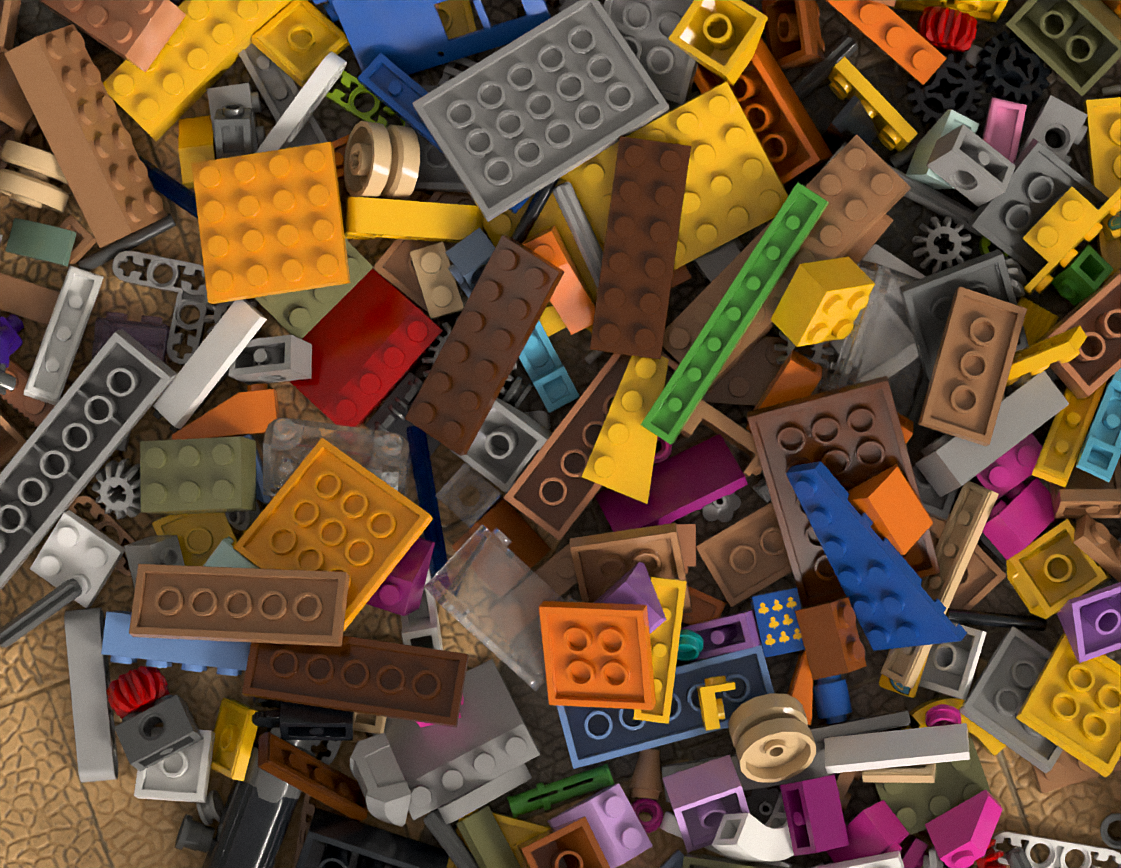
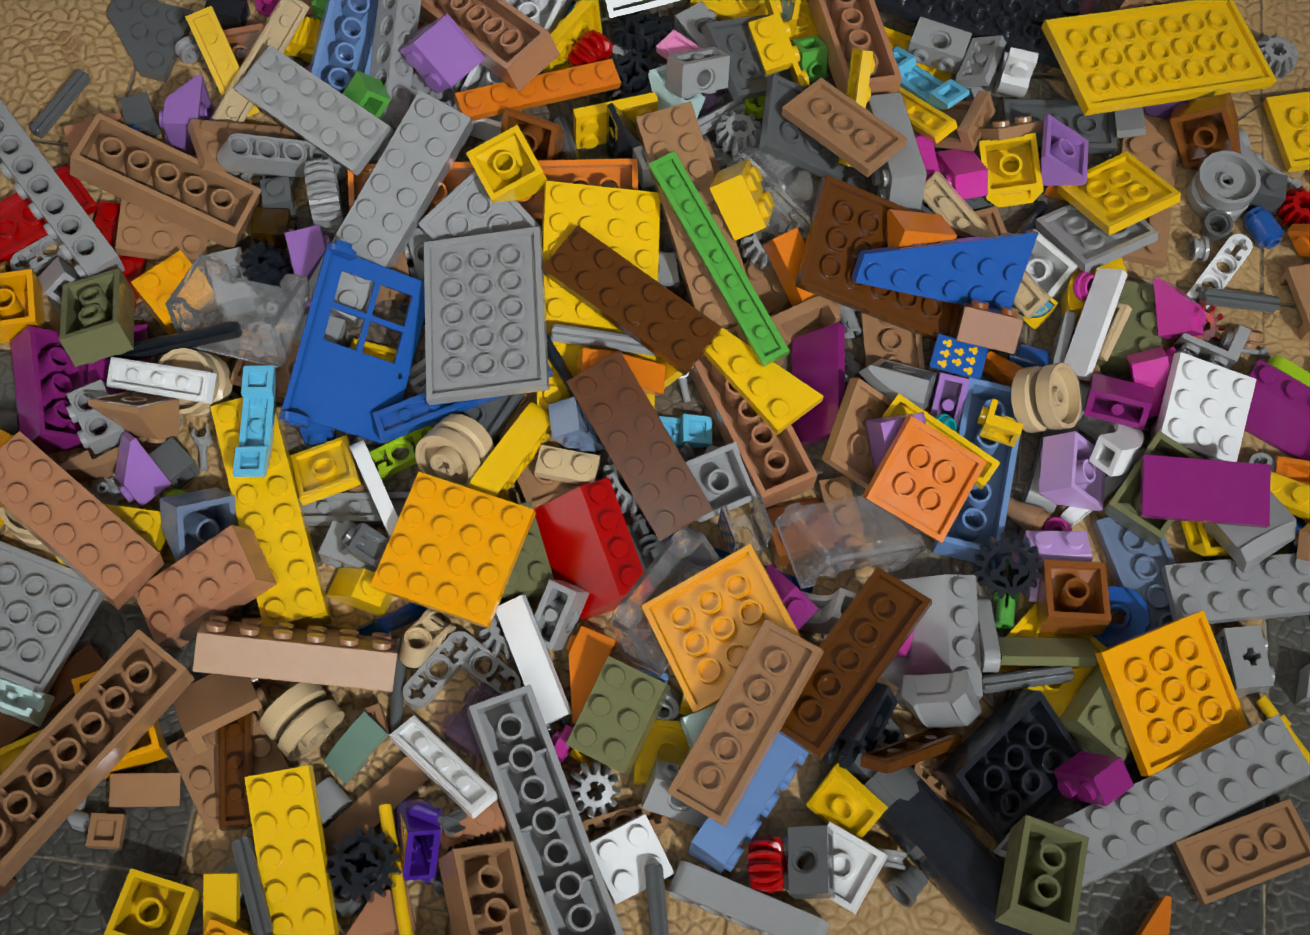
camera: 65 degrees left, 20 degrees down
(150, 432) = (559, 742): none -> dark pink plate
(185, 244) = (427, 636): none -> tan piece
(561, 783) = (1024, 565): none -> black gear
(716, 574) = (897, 378): none -> light grey slope
(1080, 821) = (1198, 248): none -> light grey bush

